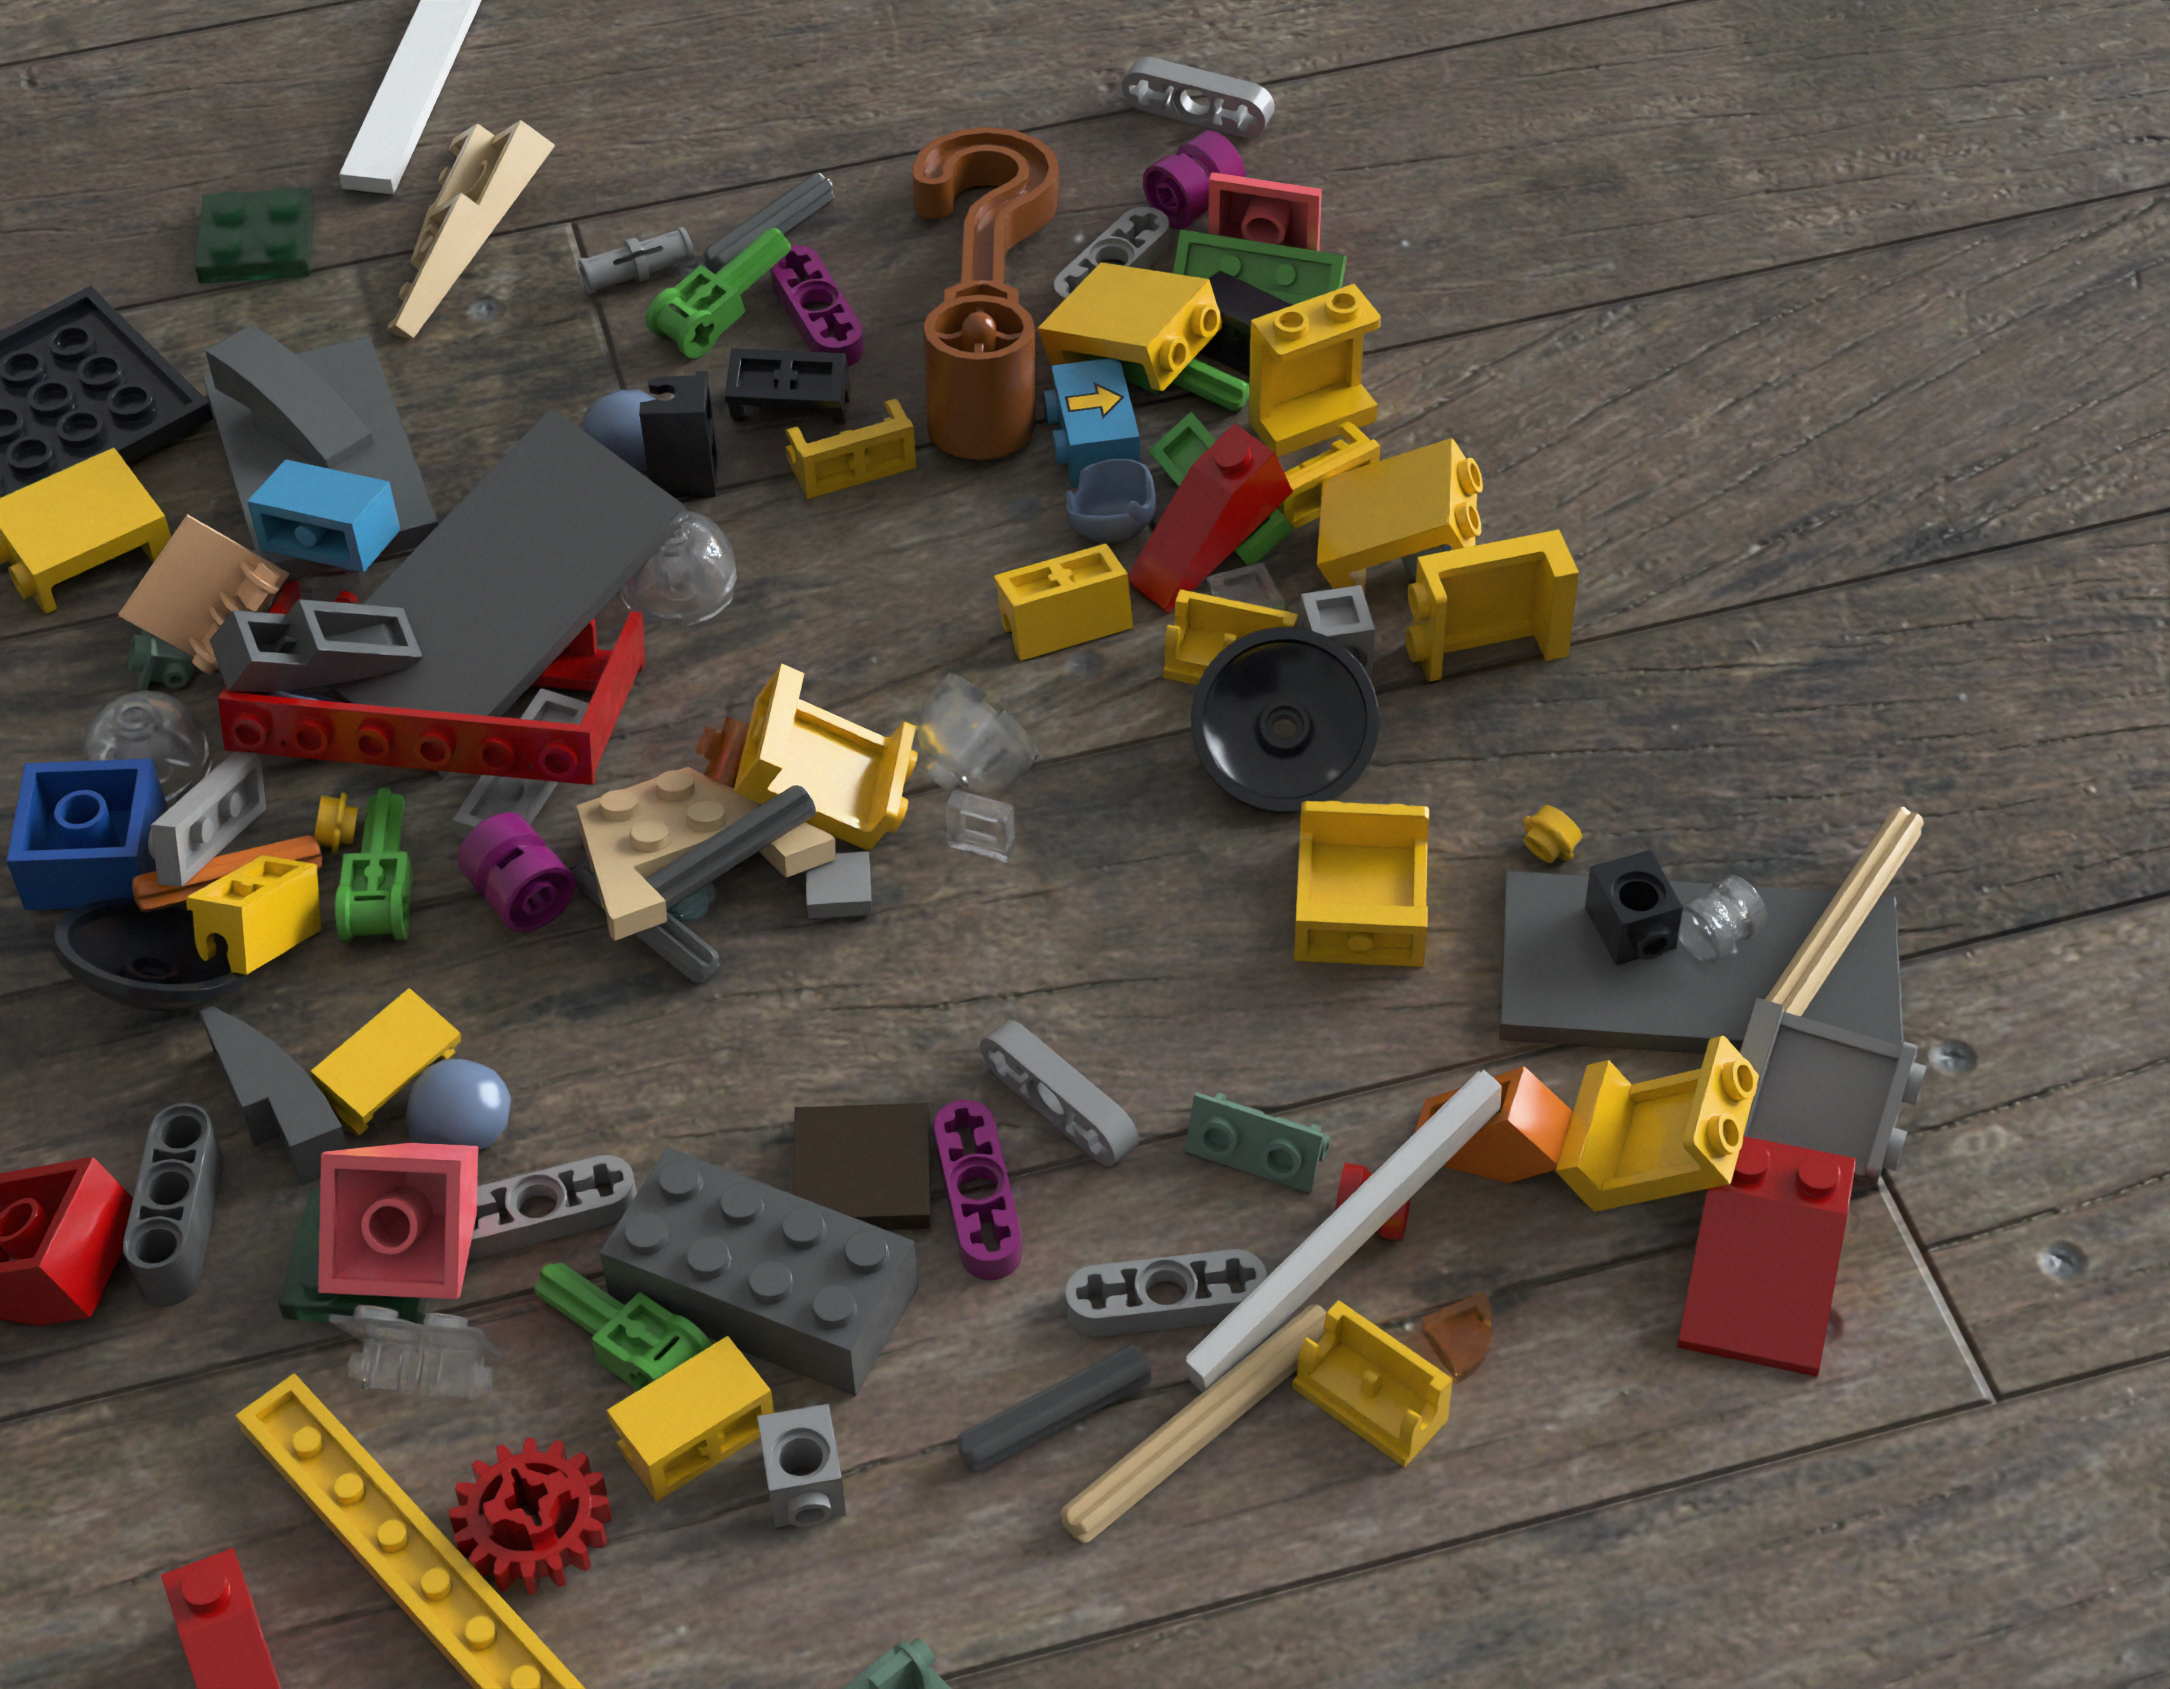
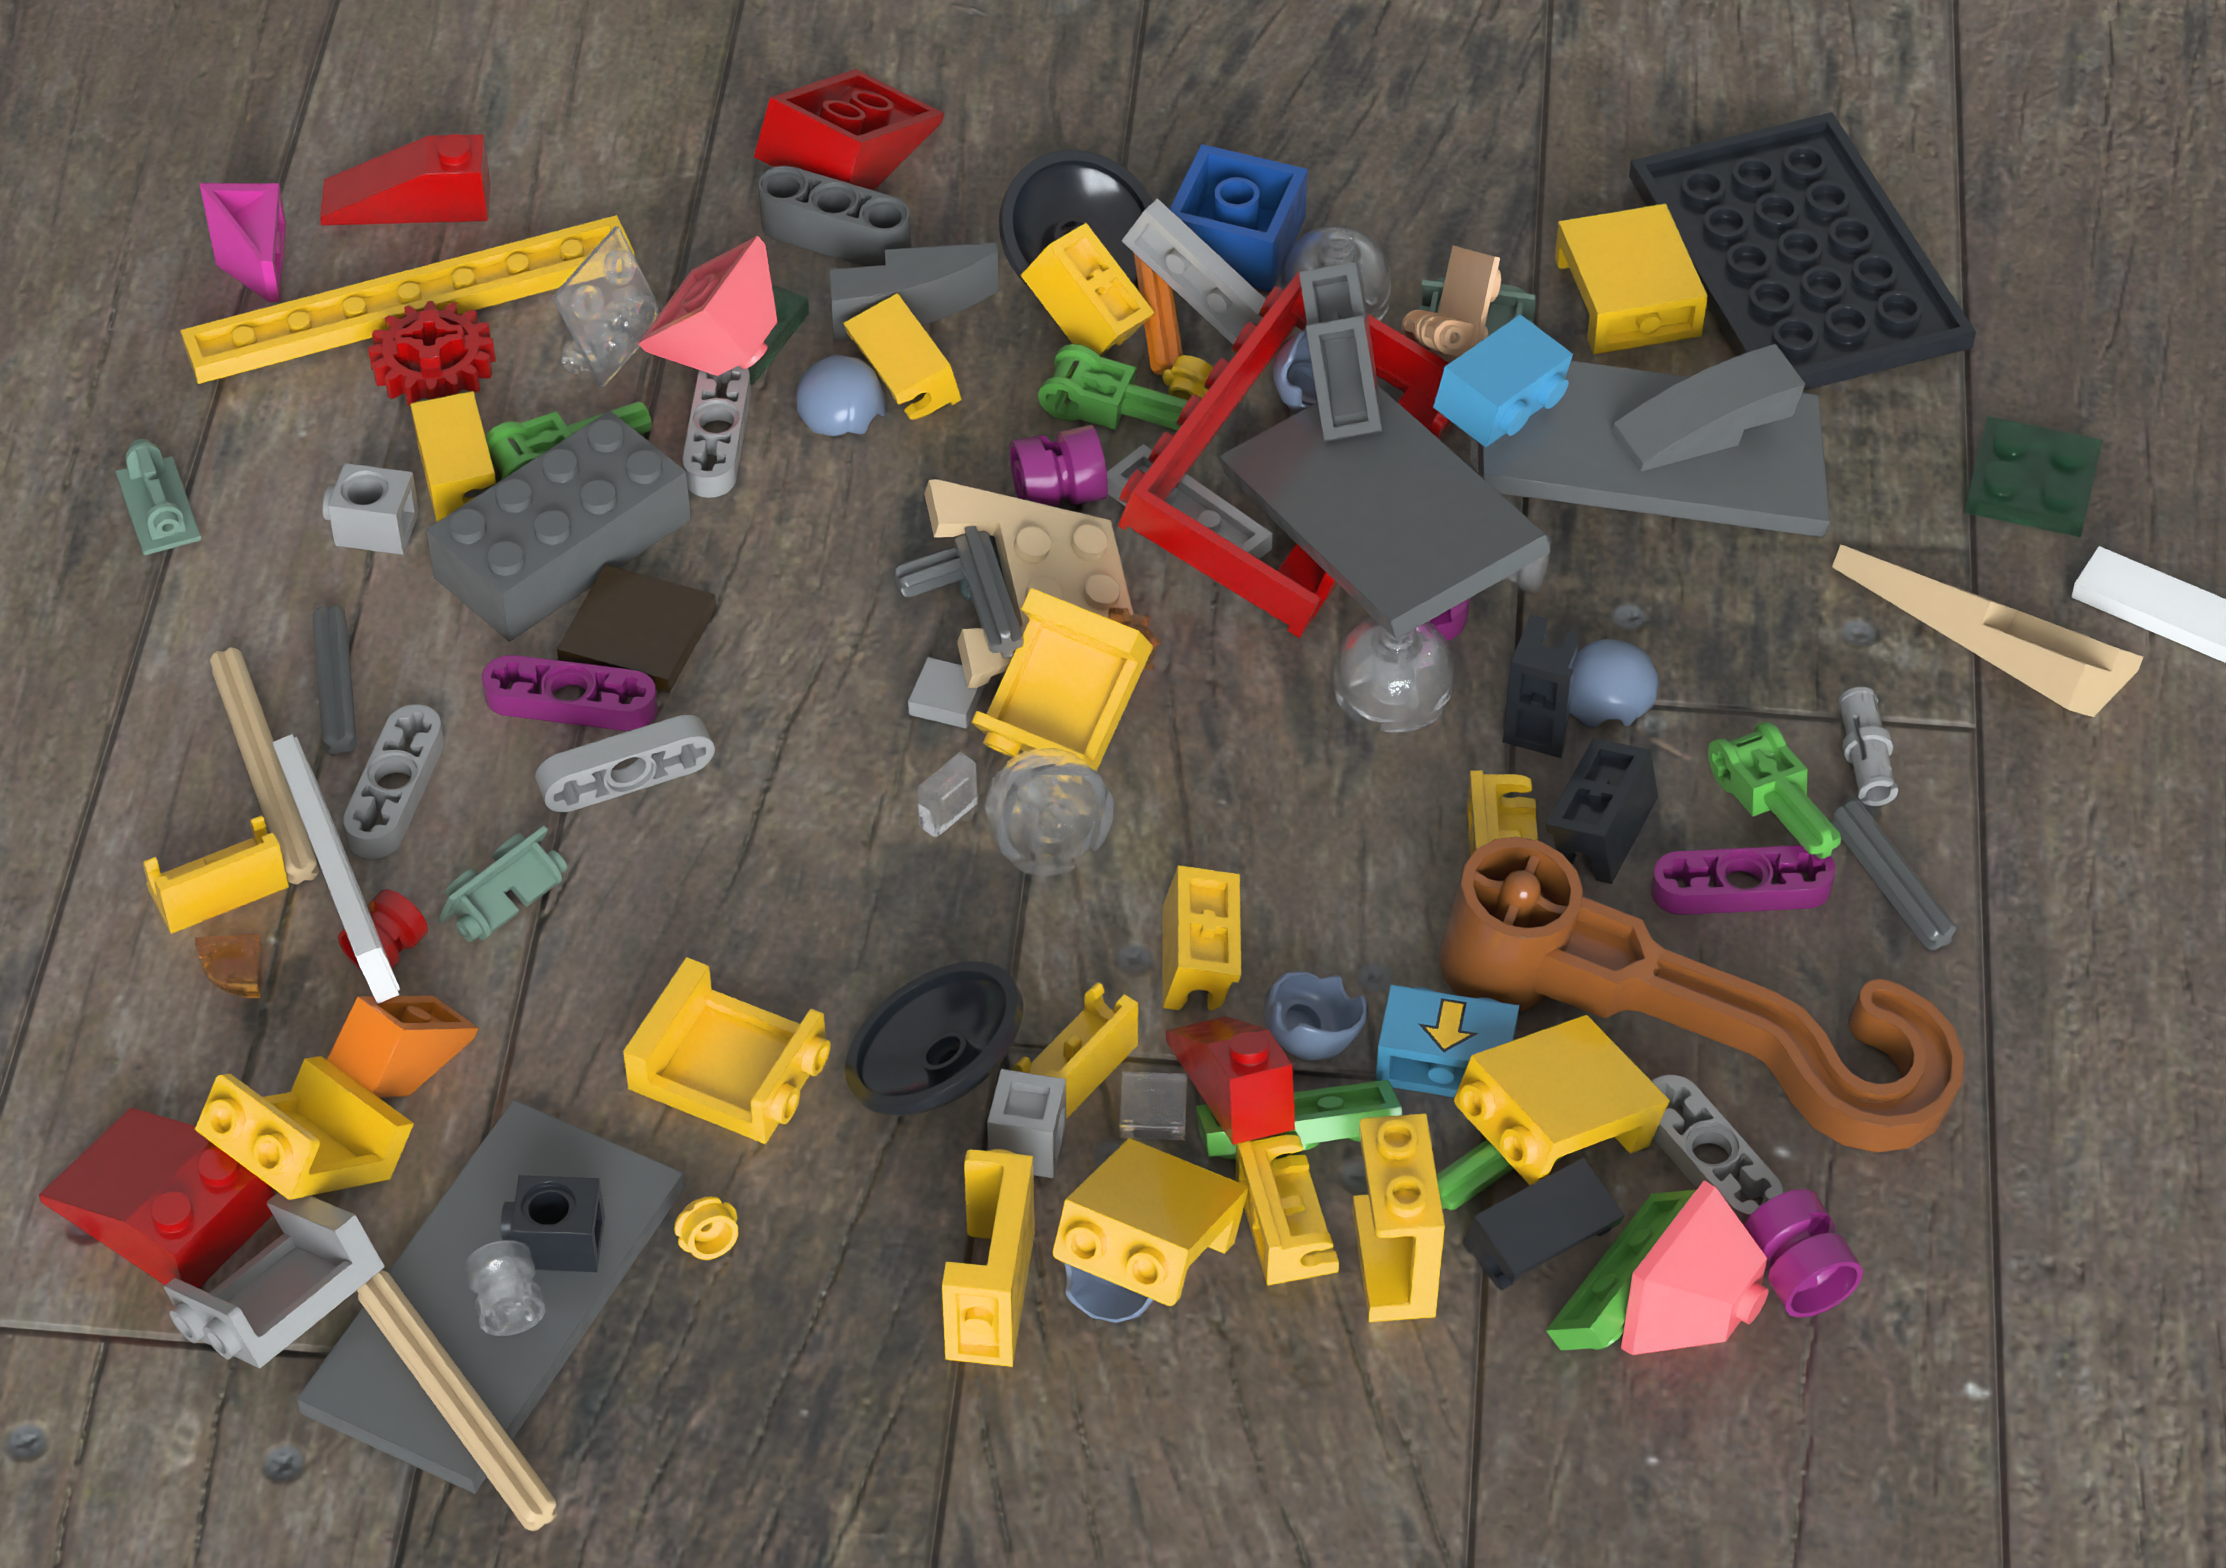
camera: 110 degrees right, 0 degrees up
(1161, 90) = (1967, 1320): light grey beam -> none

